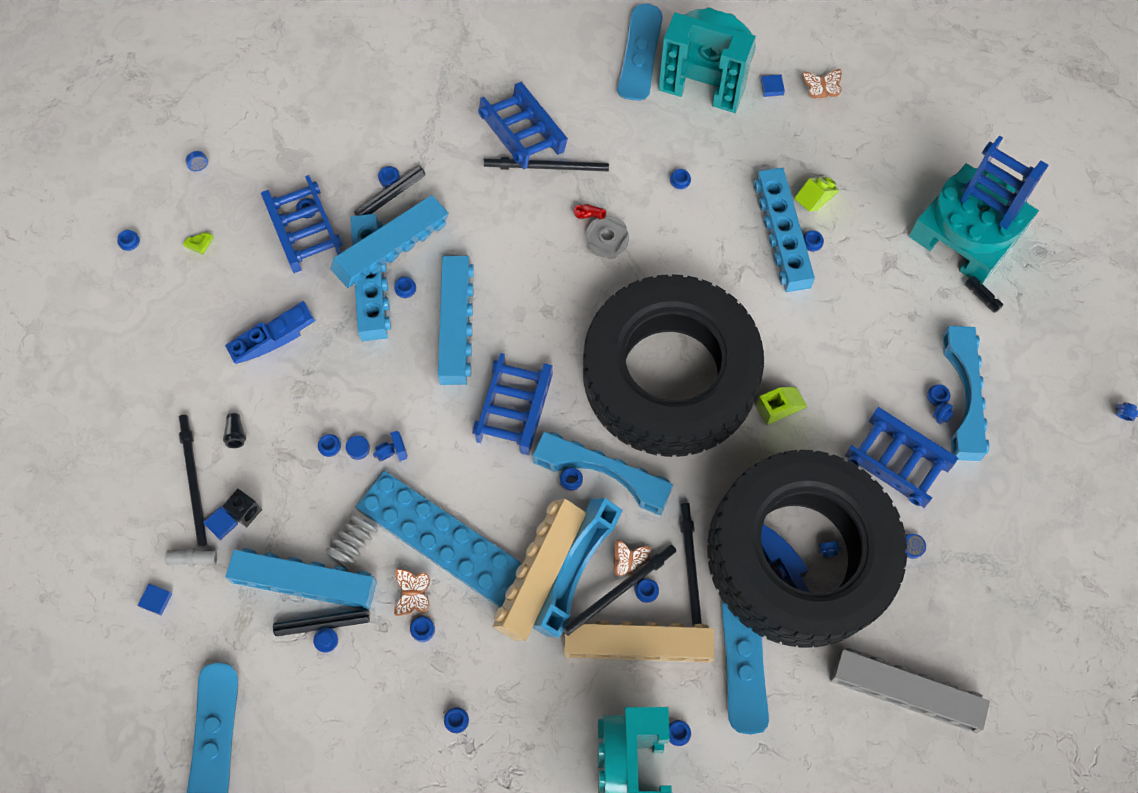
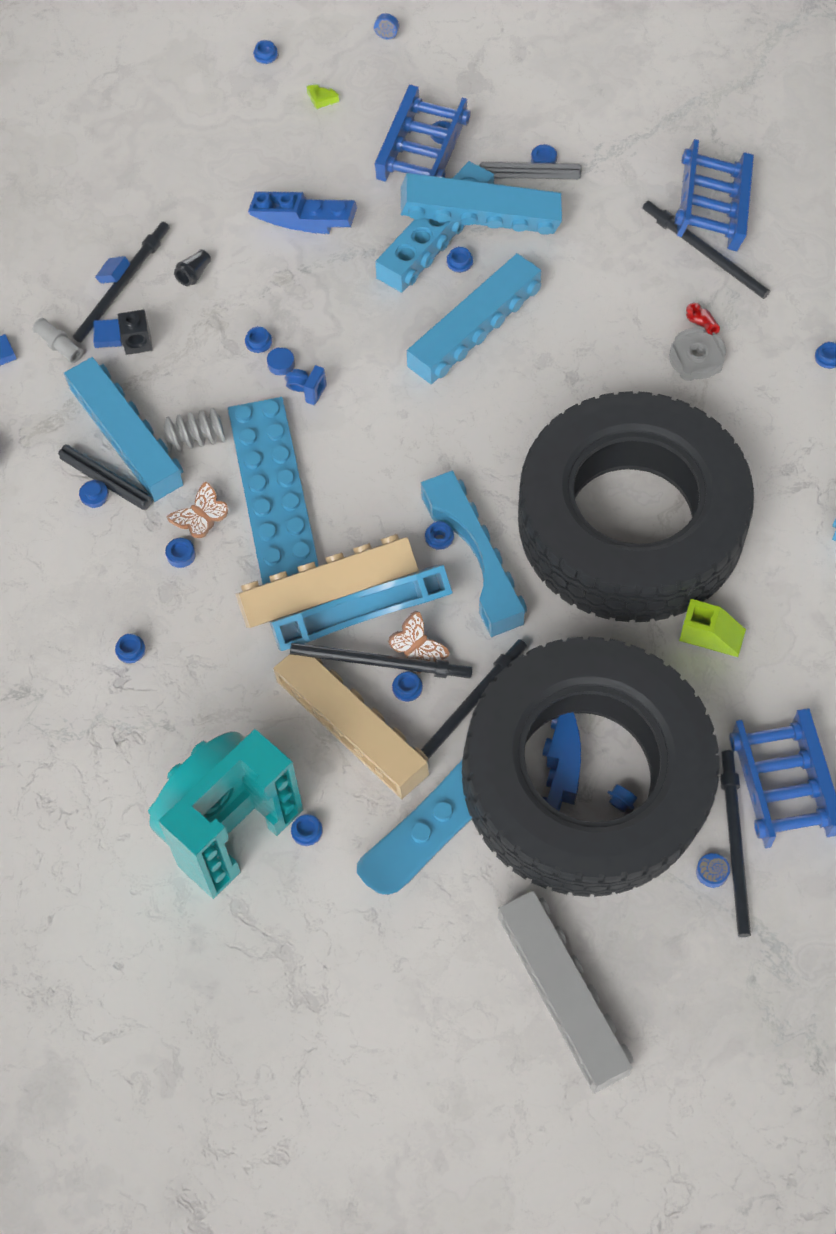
camera: 45 degrees right, 5 degrees down
(179, 477) = (112, 270): none -> blue tile
(530, 418) = (466, 451): blue fence -> none
(927, 535) = (730, 783): none -> black bar

